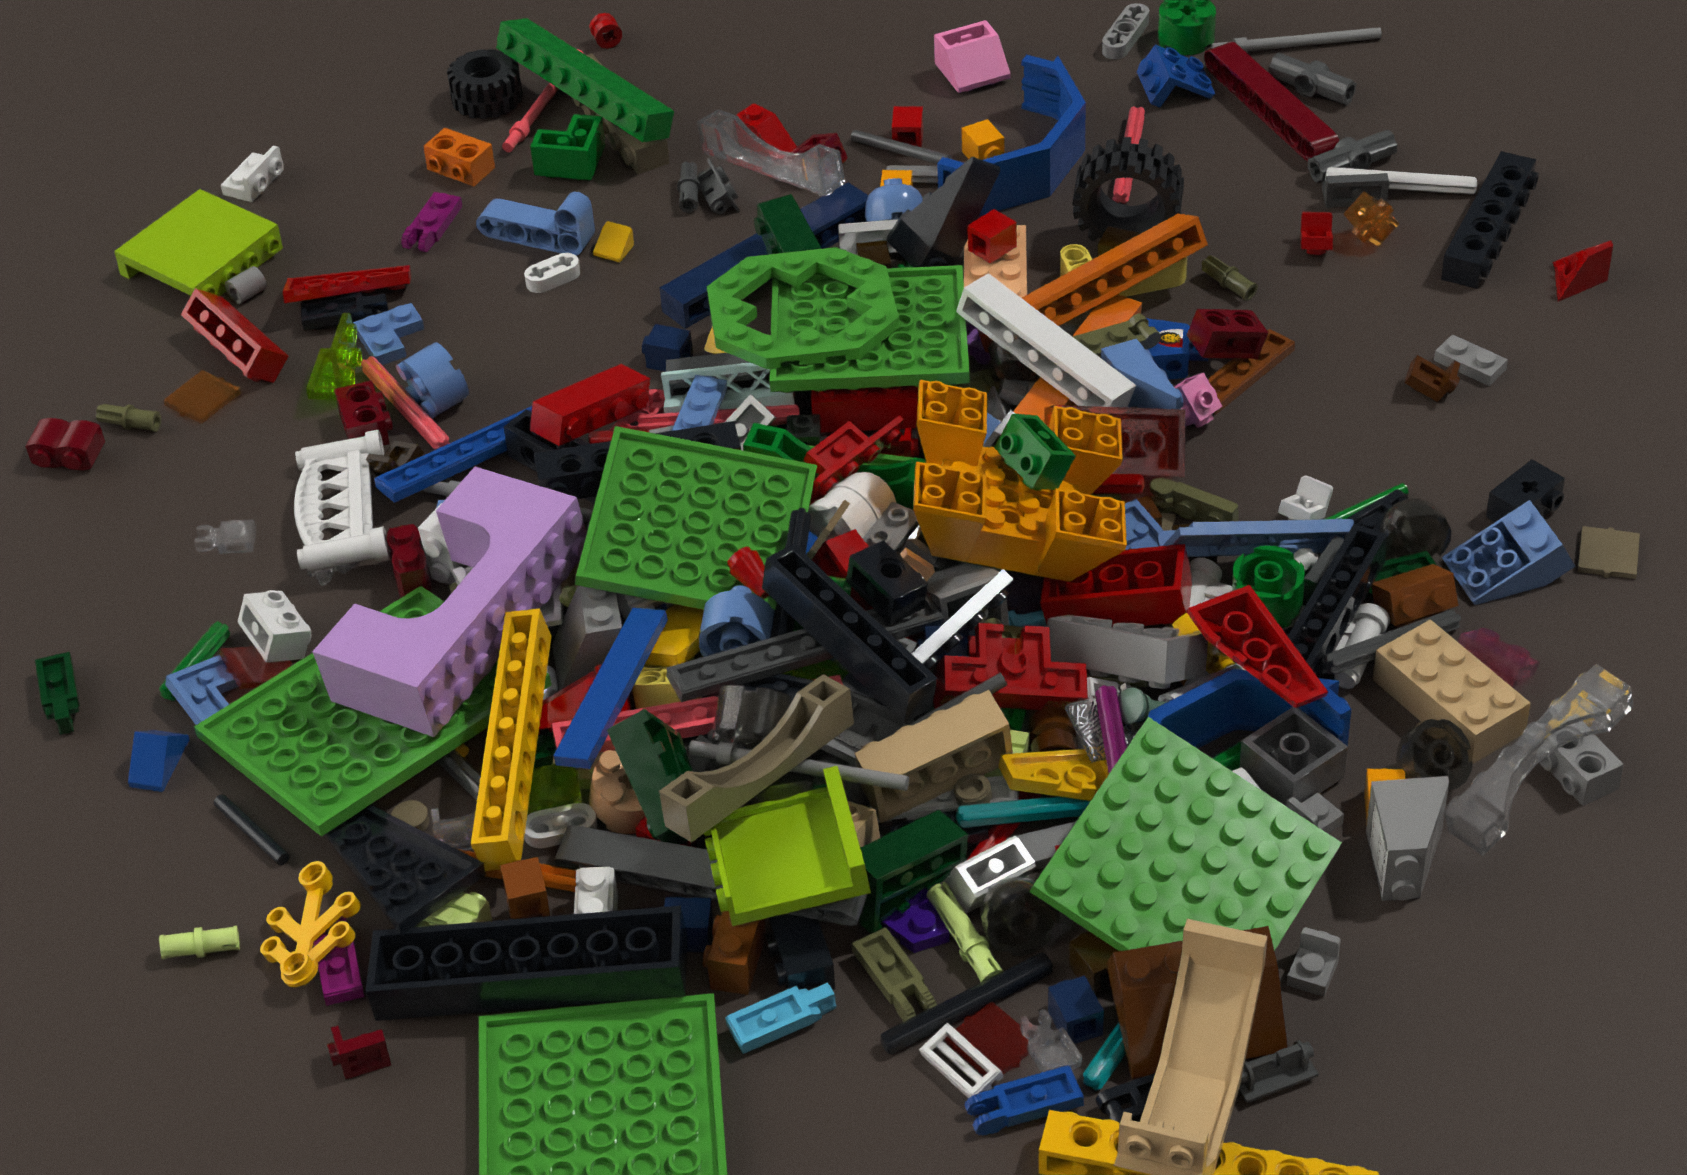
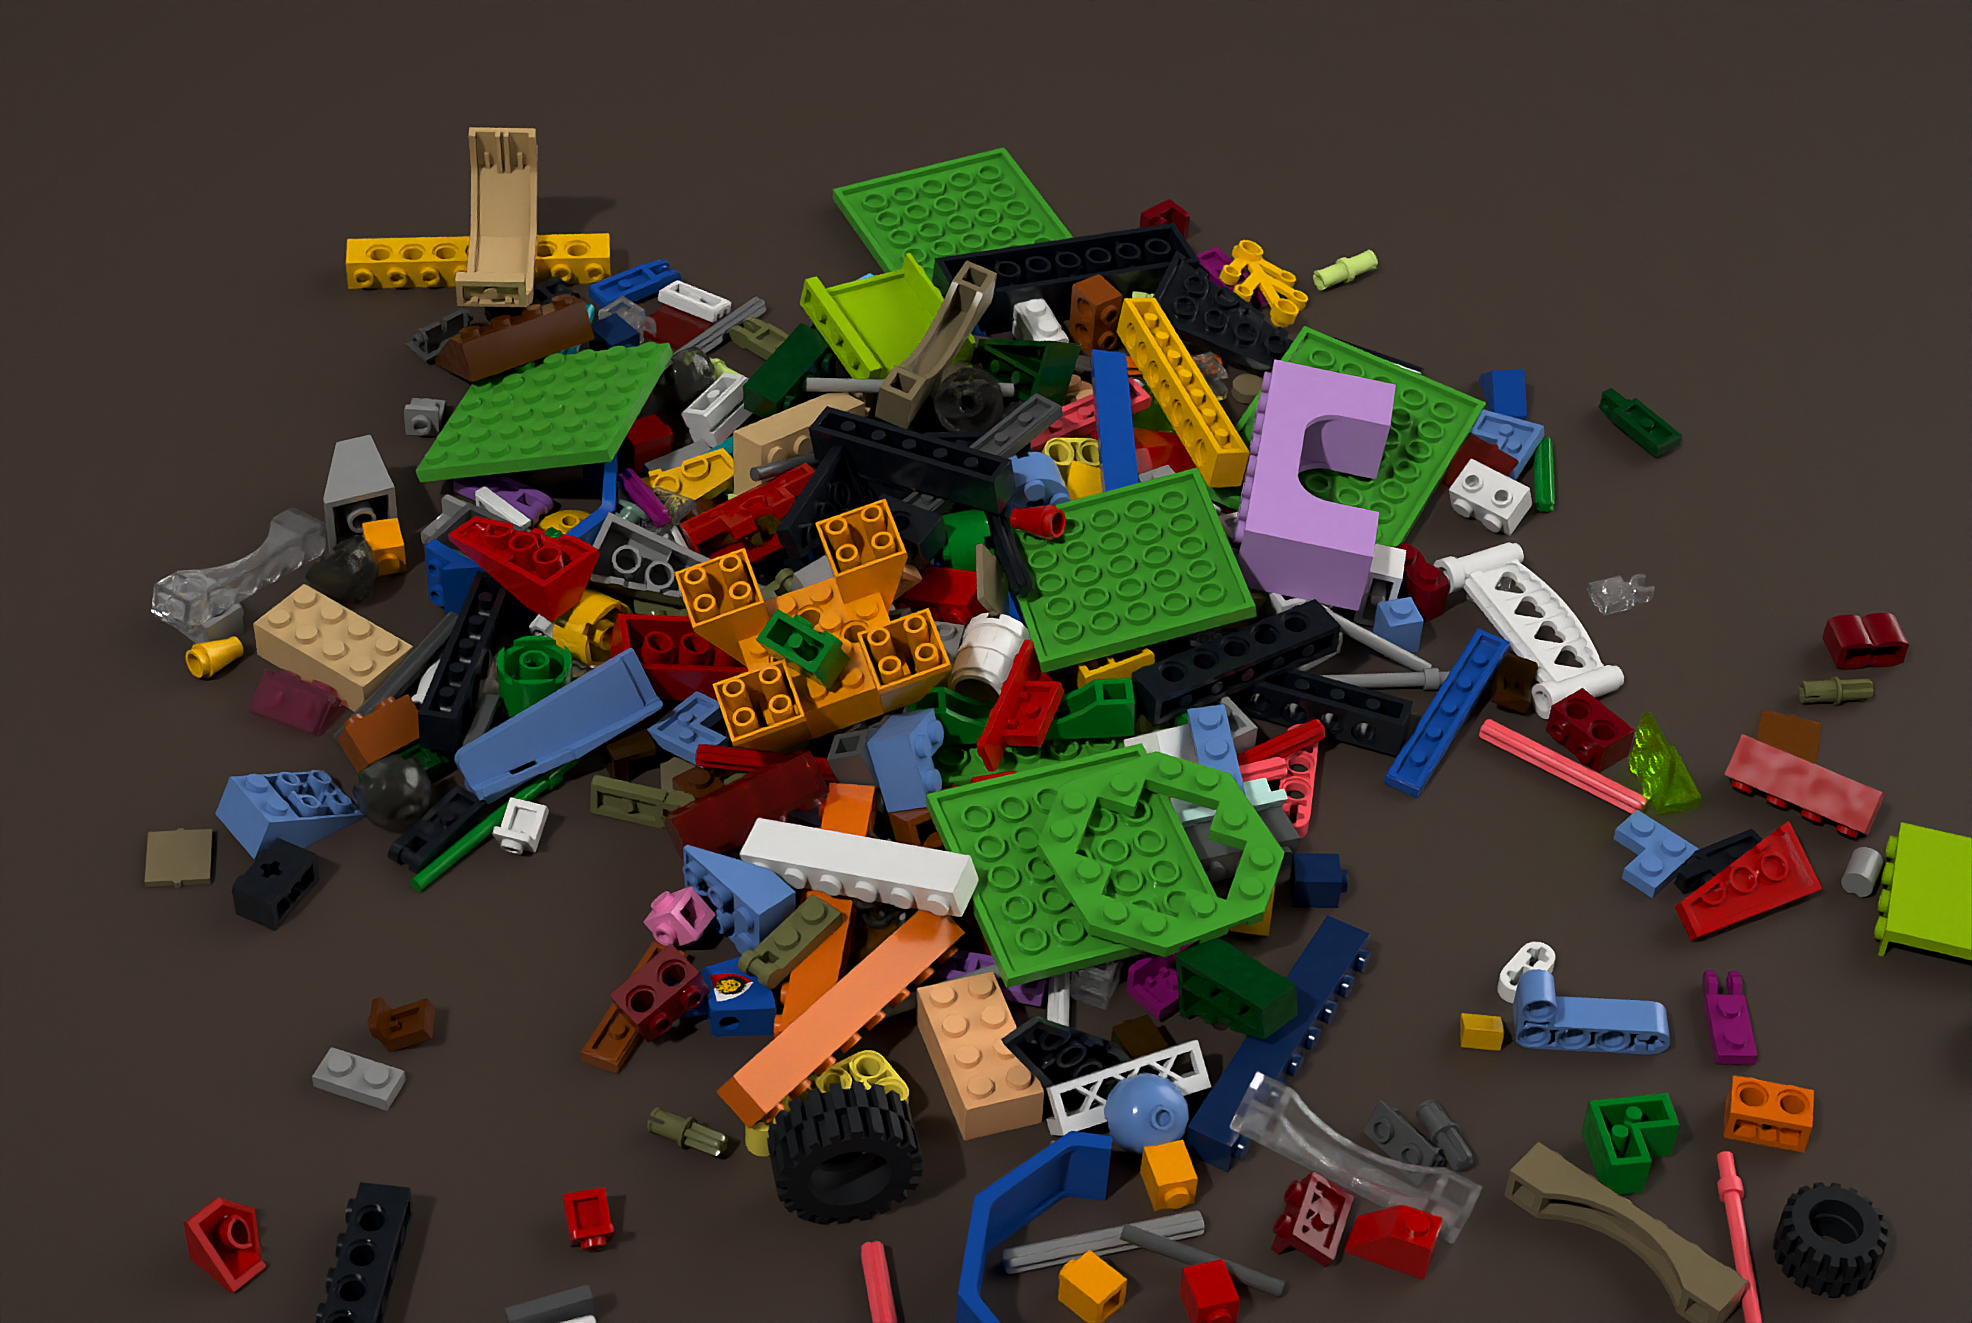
camera: 155 degrees right, 0 degrees up
(433, 379) = (1539, 766): medium blue brick -> none
(585, 80) = (1678, 1209): green brick -> none
(589, 404) = (1335, 736): red brick -> none
(992, 236) = (983, 1036): red brick -> none
(1371, 219) = (518, 1251): clear orange brick -> none

